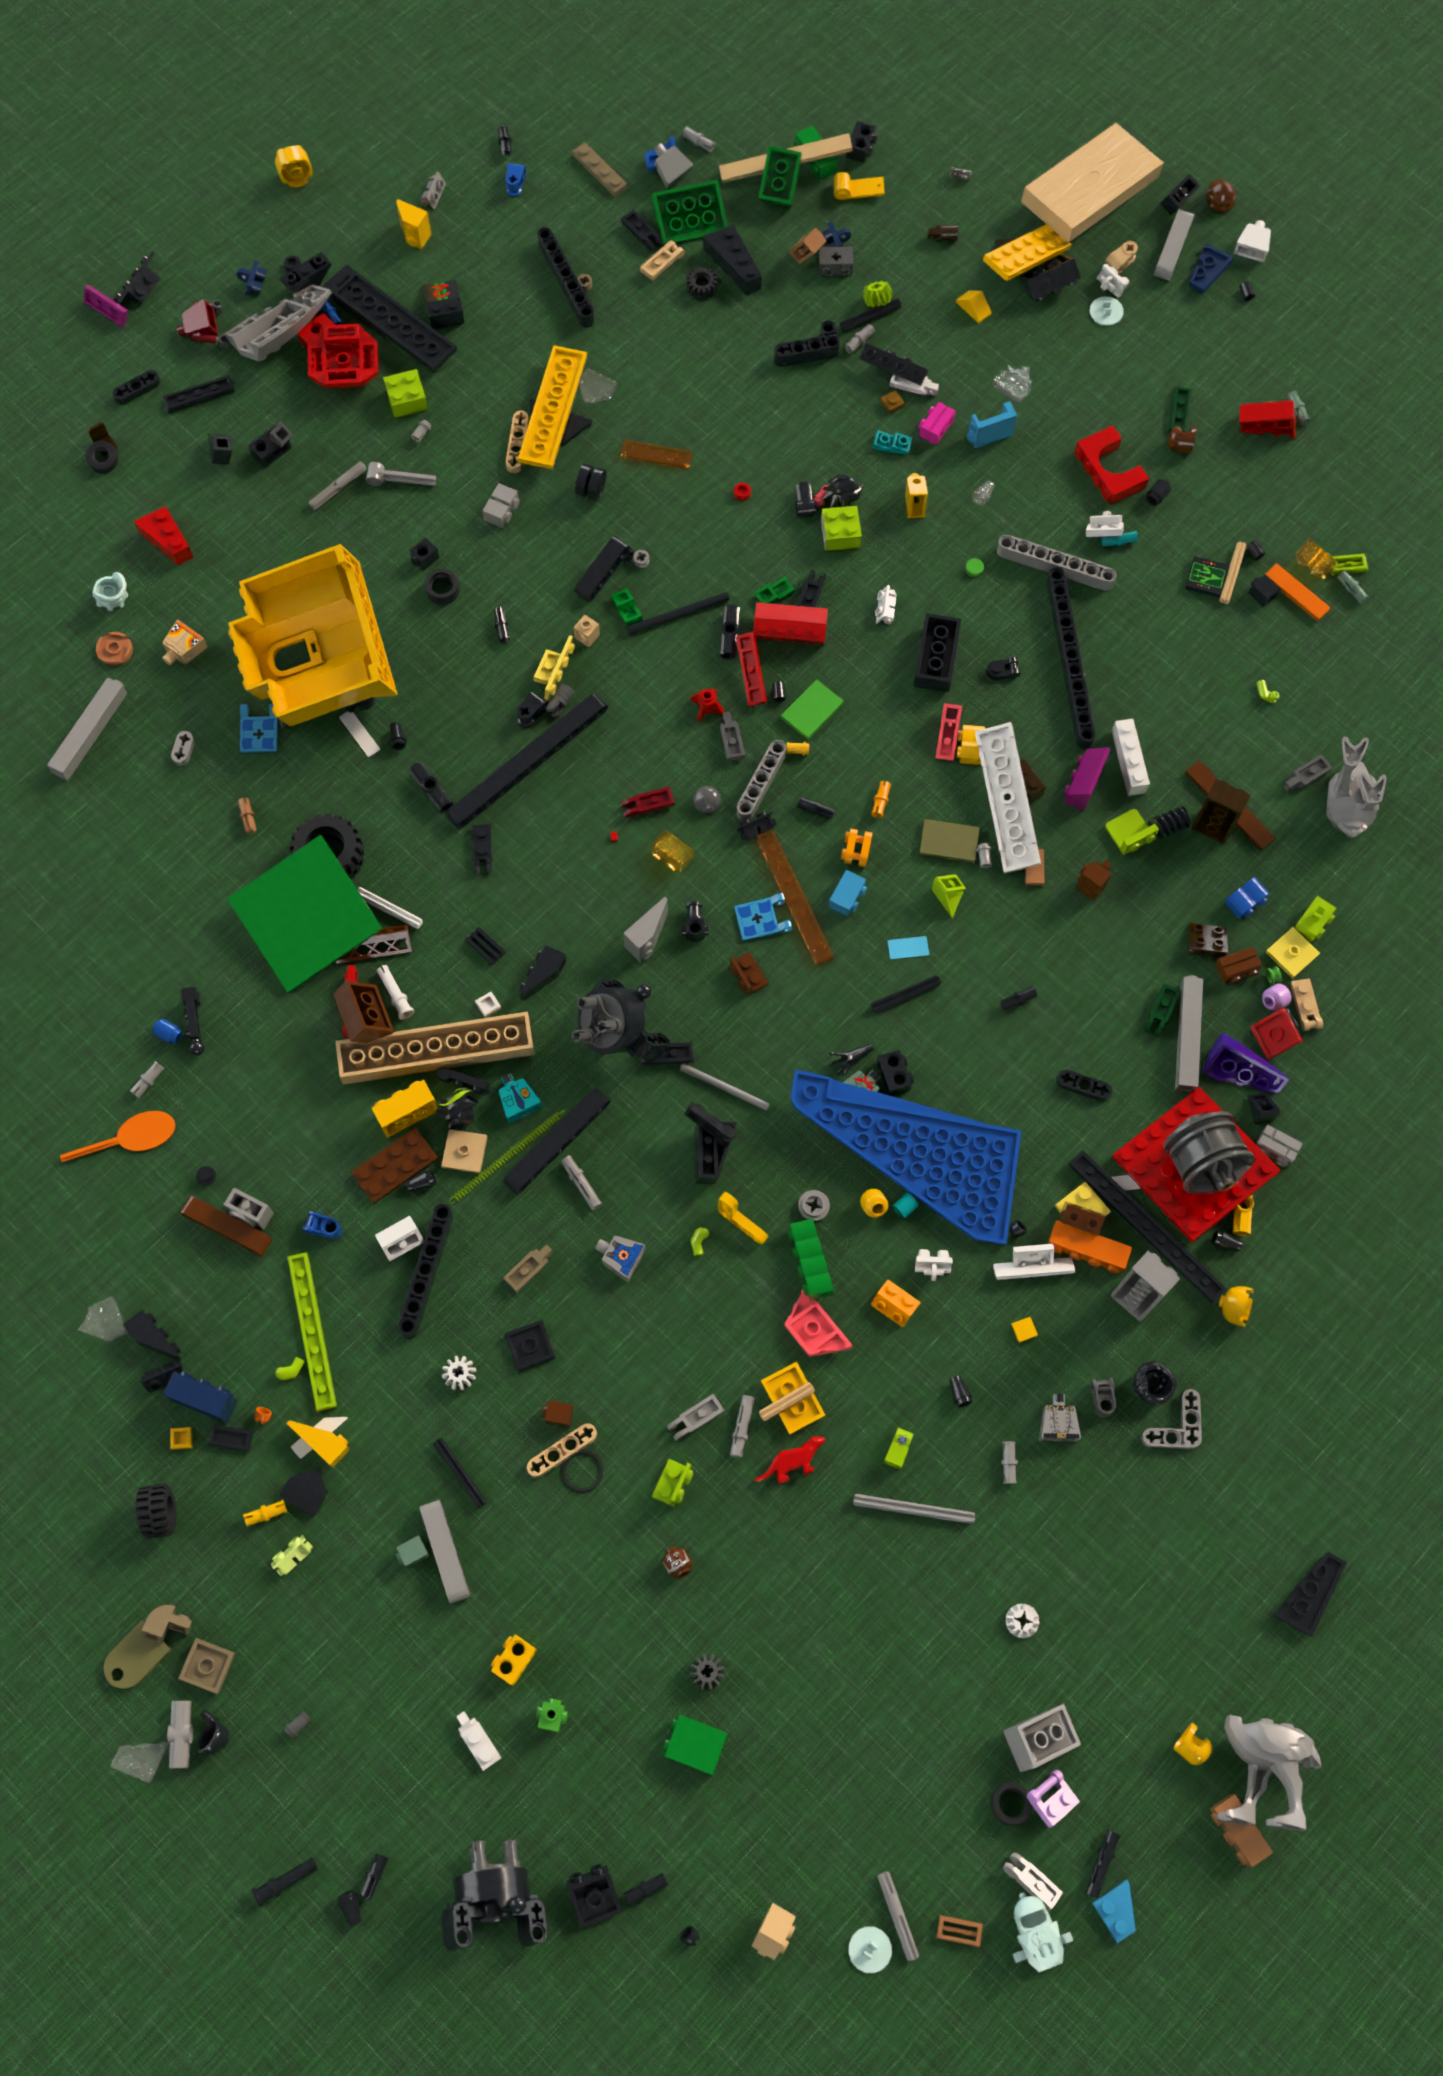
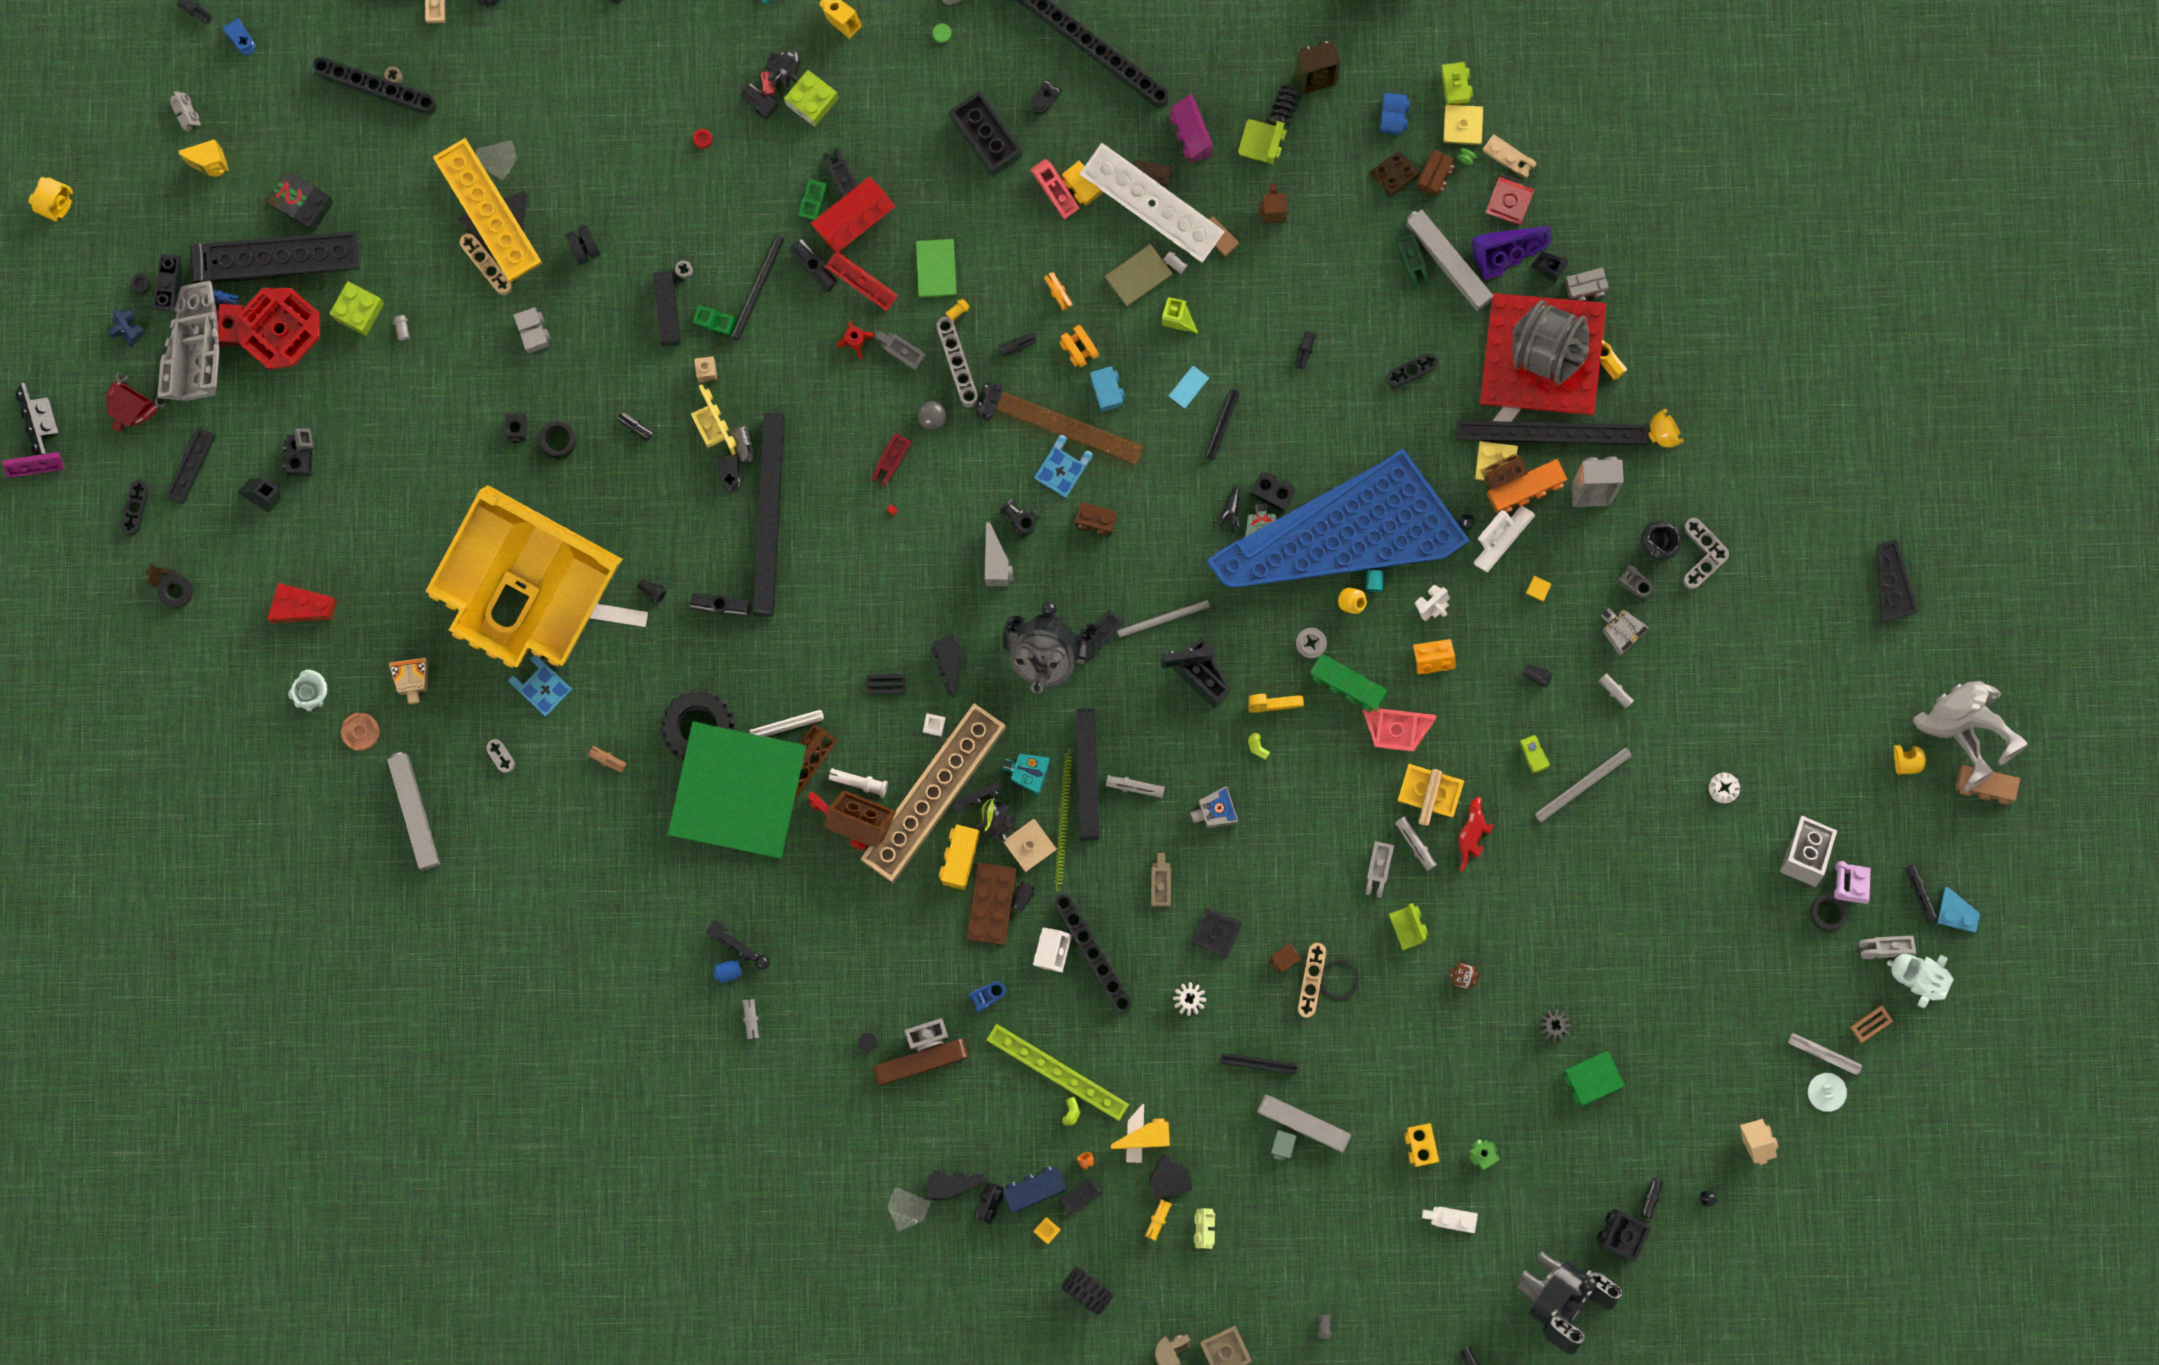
camera: 40 degrees left, 10 degrees up
(136, 1134) = (785, 1062): orange piece -> none
(337, 485) = (385, 435): light grey axle -> none
(377, 474) = (407, 396): light grey axle -> none
(482, 846) = (805, 612): black hinge -> none
(656, 454) = (604, 170): clear orange tile -> none
(672, 851) = (948, 480): clear yellow brick -> none
(778, 691) = (898, 278): black hinge -> none
(884, 612) = (901, 123): white hinge -> none
(1130, 757) = (1207, 81): white brick -> none
(1225, 1241) = (1613, 391): black cone -> none
(1247, 823) = (1290, 47): reddish brown tile -> none
(1276, 997) = (1484, 172): lavender head -> none

